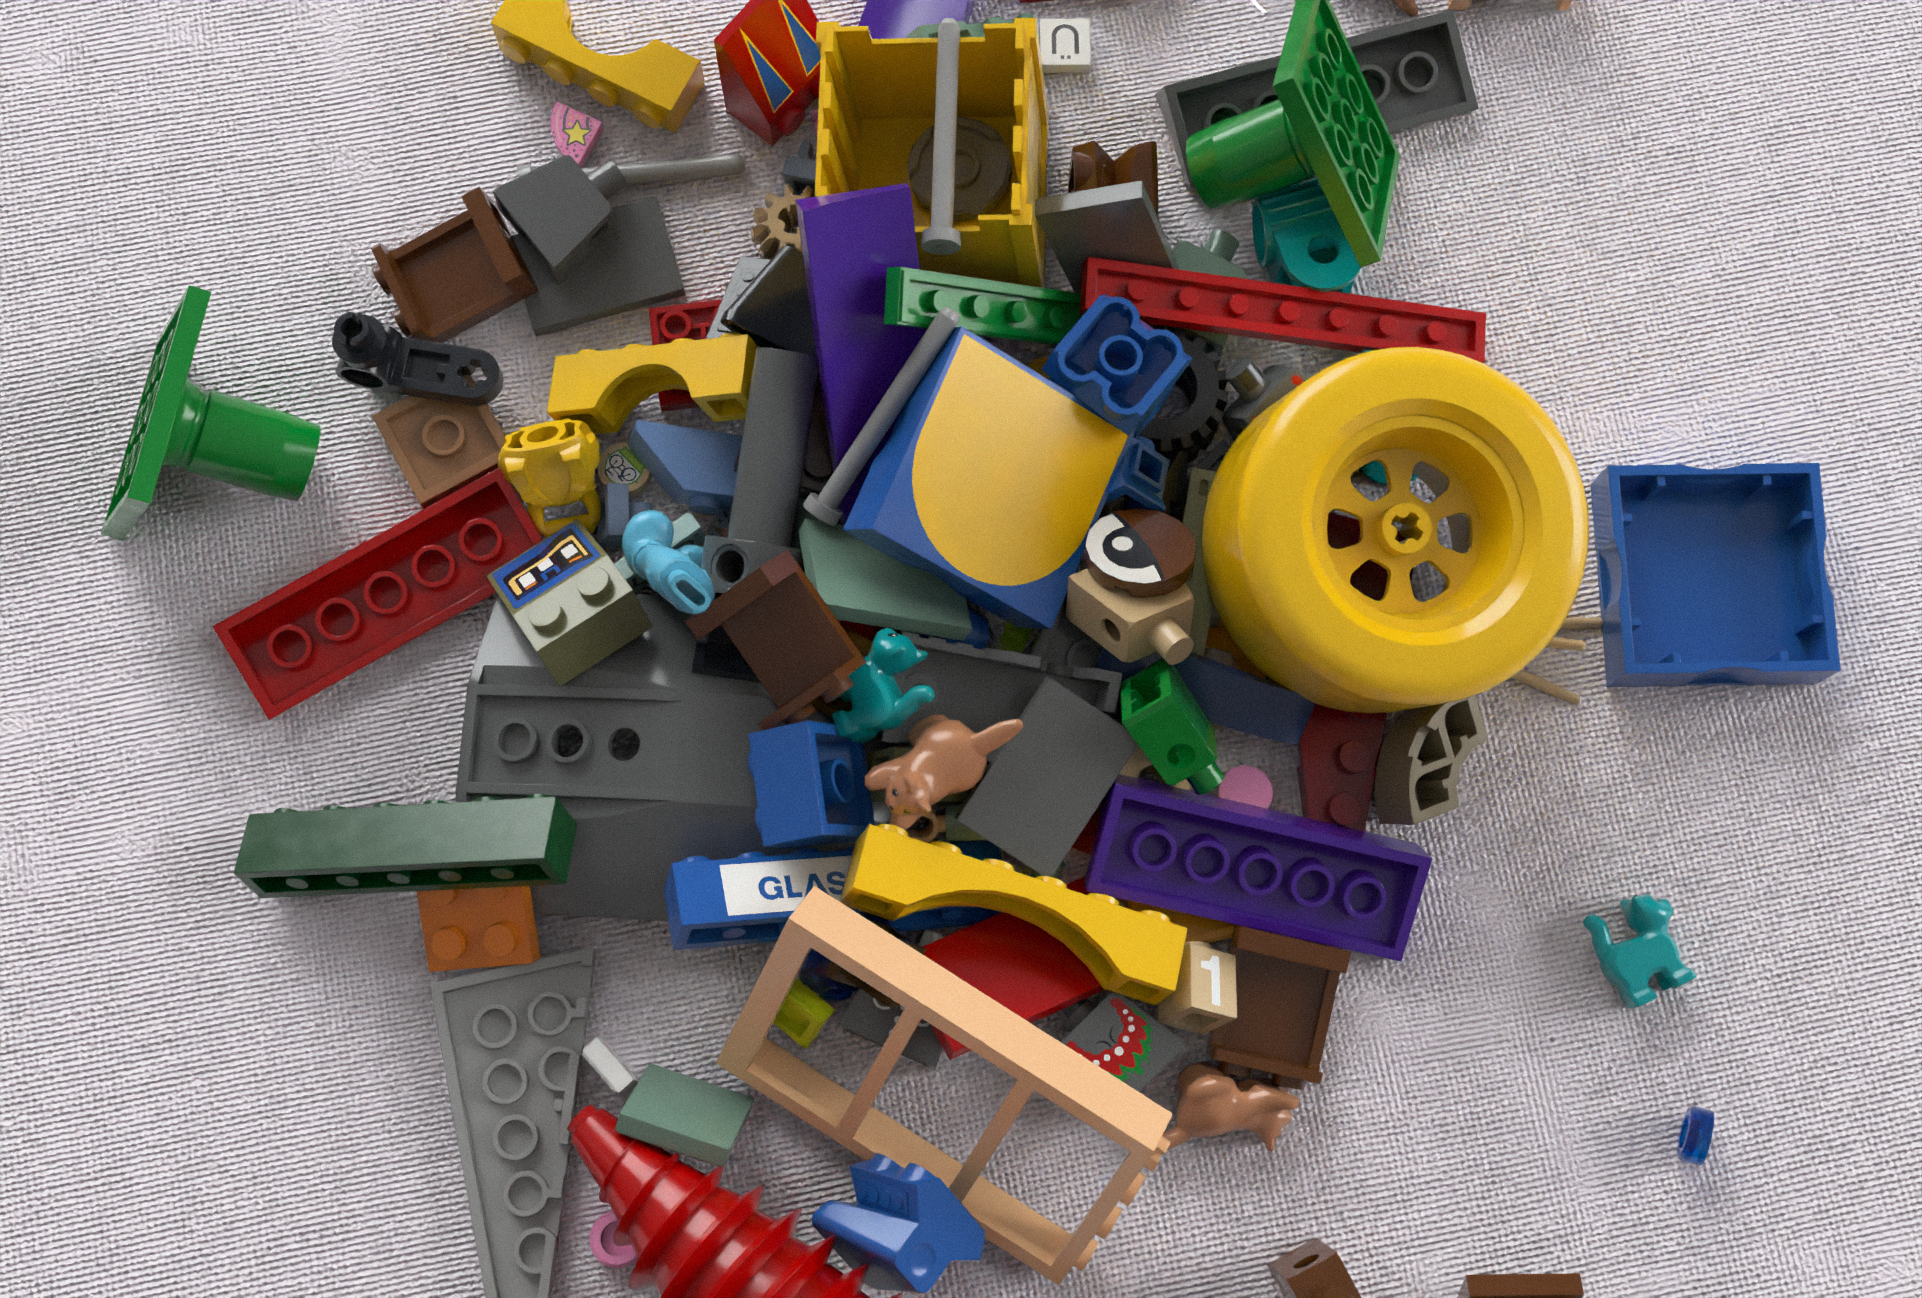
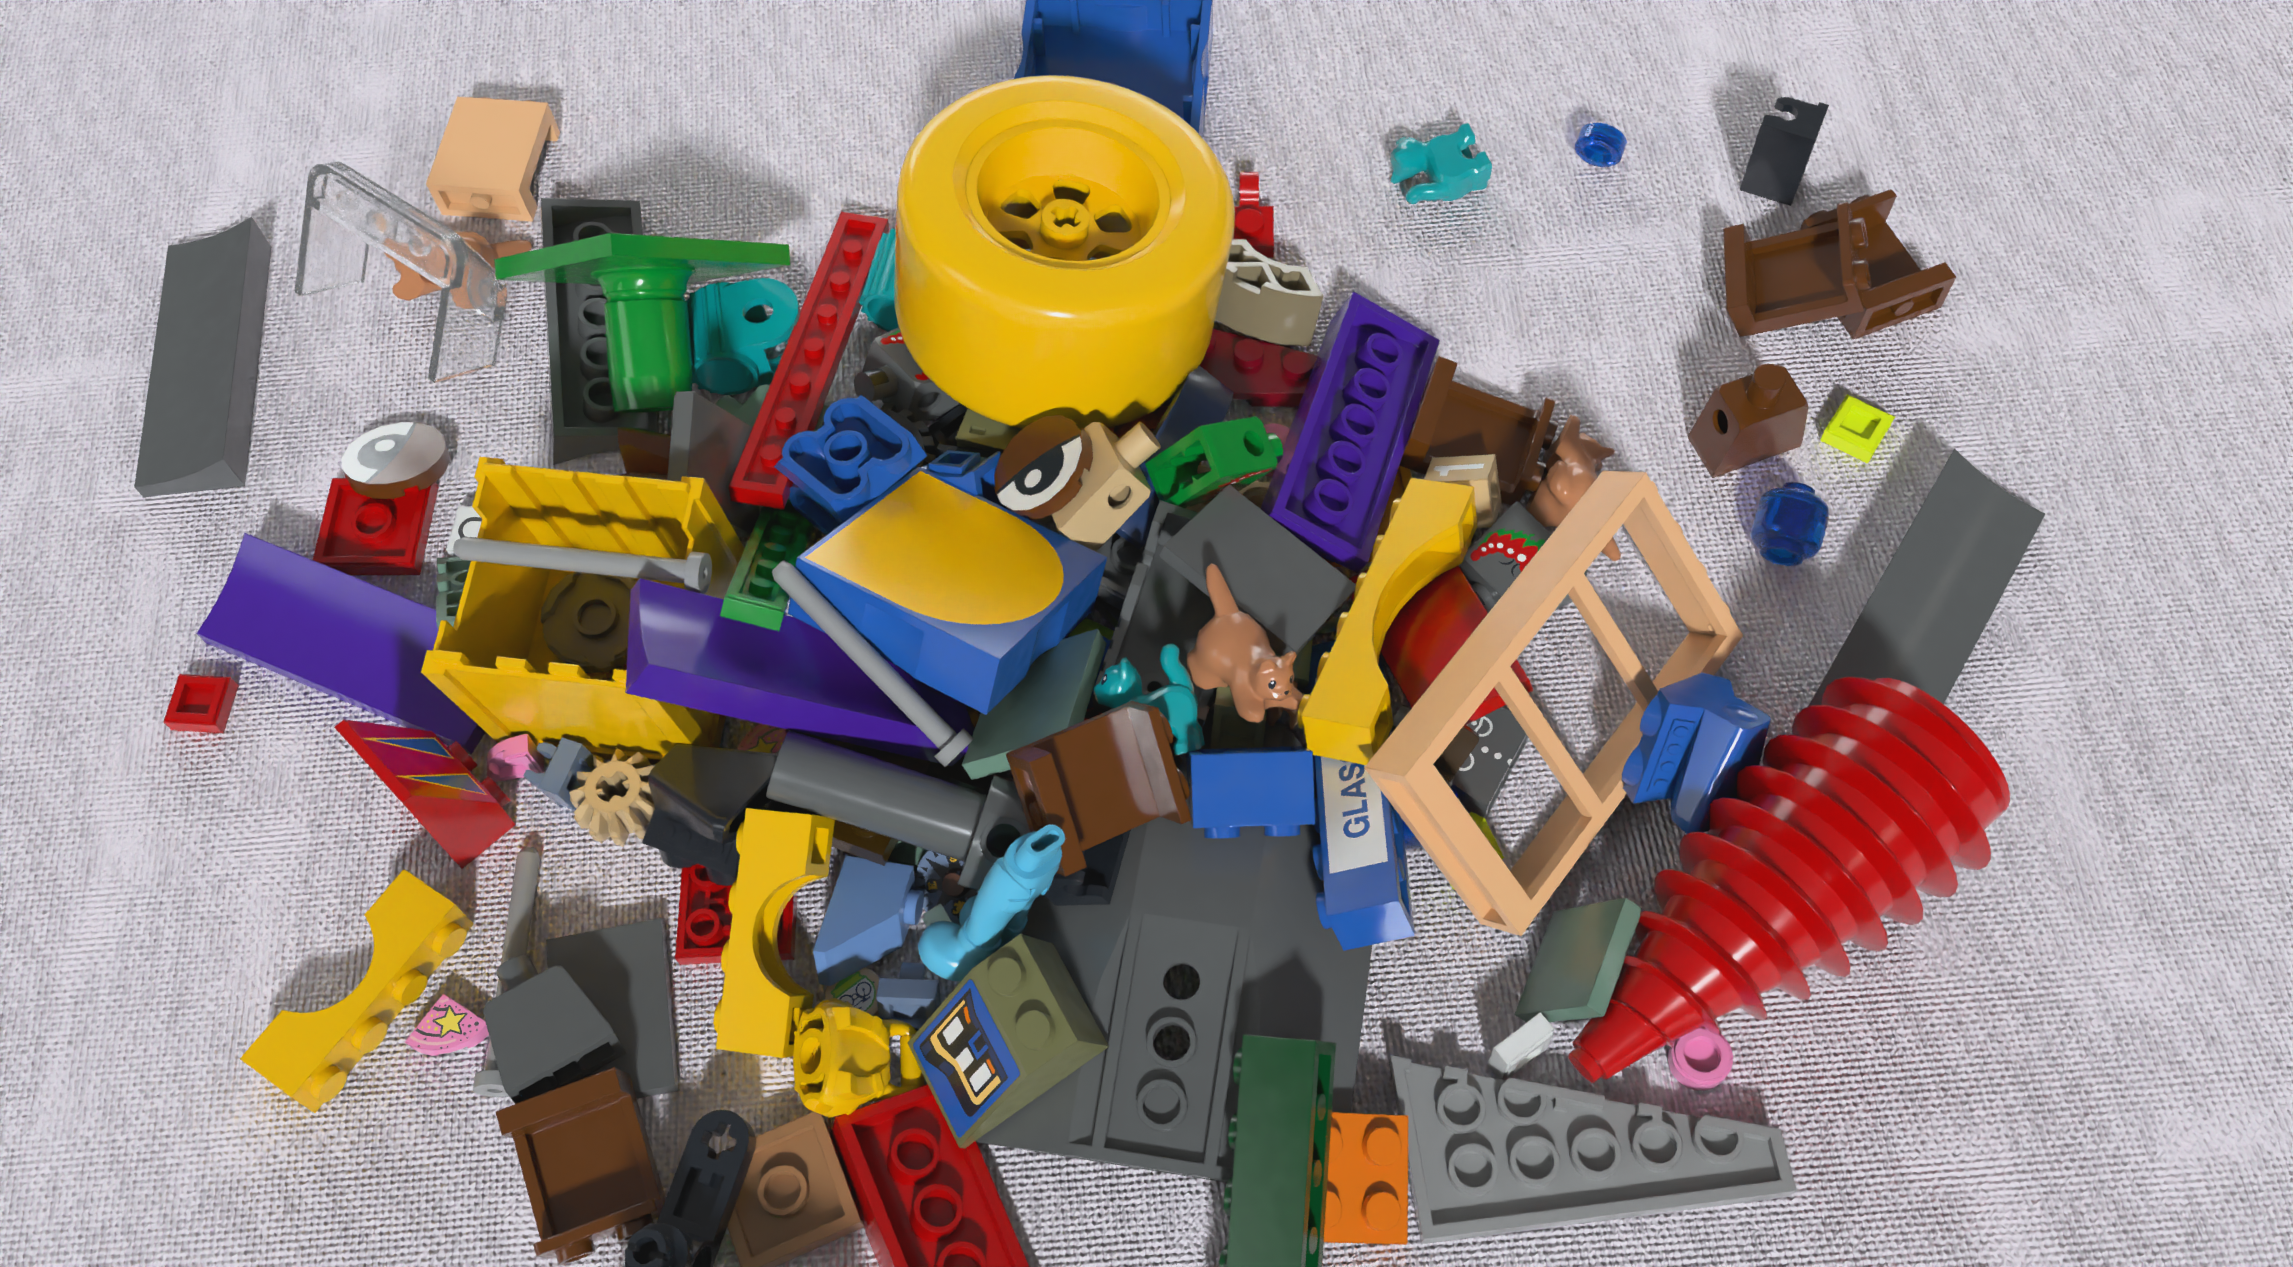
camera: 75 degrees left, 15 degrees down
(1532, 746) = (1254, 221): none -> red plate

